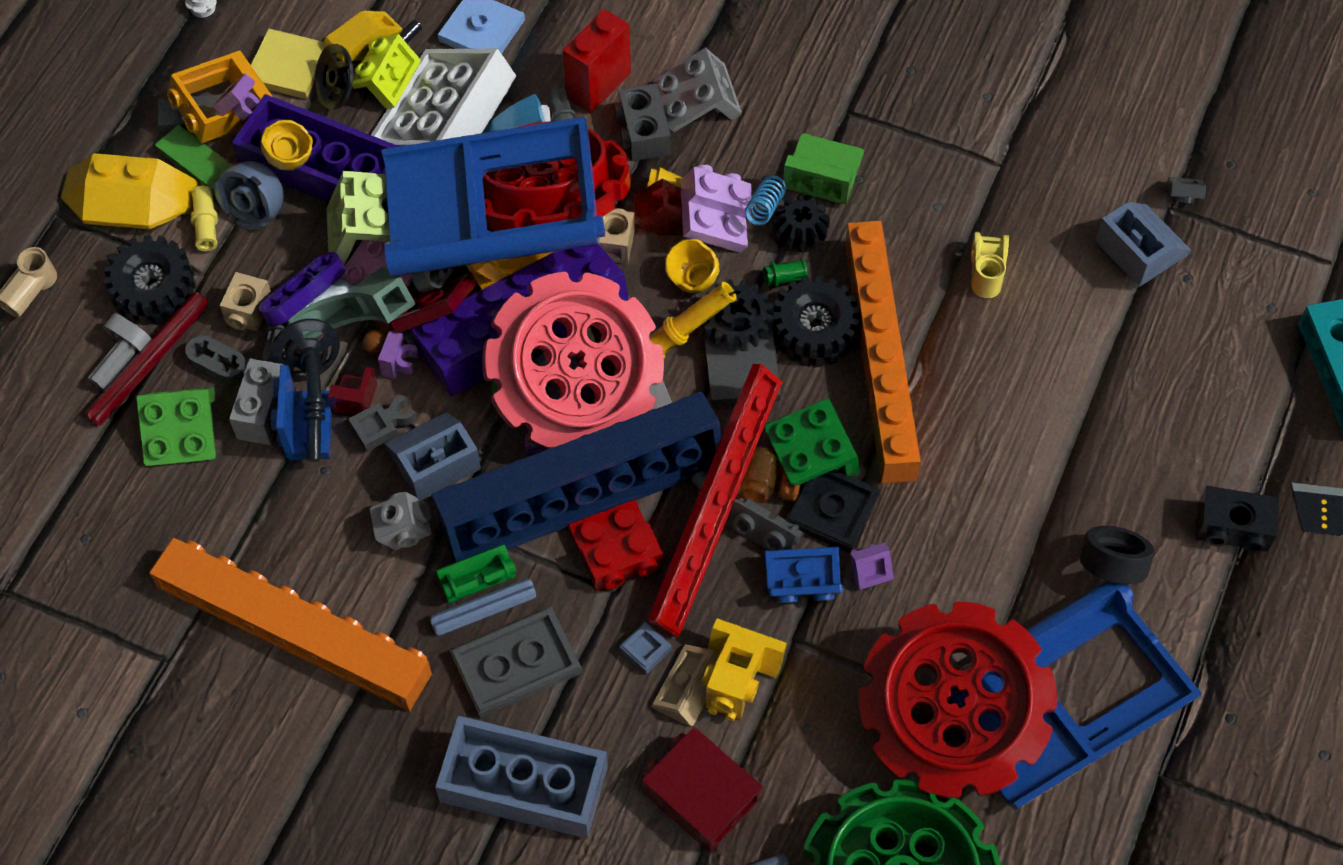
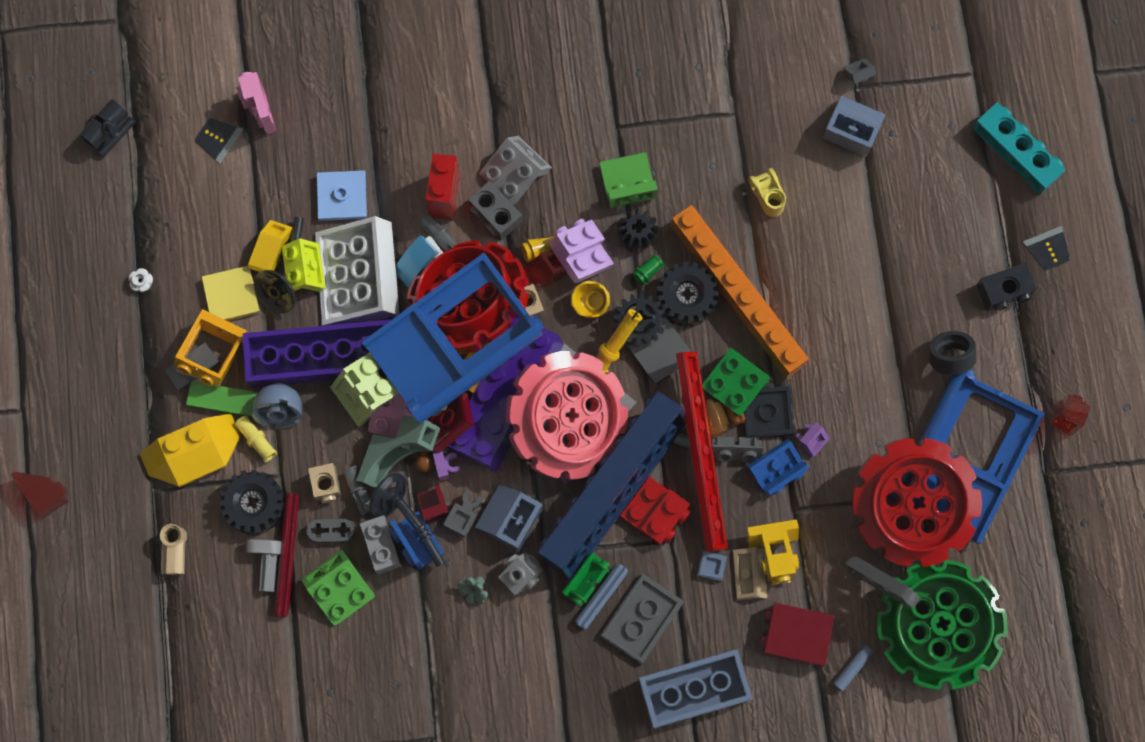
camera: 30 degrees left, 15 degrees up
(238, 97) = (227, 348): medium lavender tile -> none
(286, 145) = (289, 366): yellow hair -> none
(292, 623) = (495, 674): orange brick -> none
(302, 288) = (354, 447): dark purple beam -> none
(332, 511) = (473, 589): none -> sand green plant
(767, 200) = (605, 237): dark azure piece -> none
(850, 774) = (881, 581): none -> dark grey beam
(1237, 714) = (1071, 414): none -> clear red slope

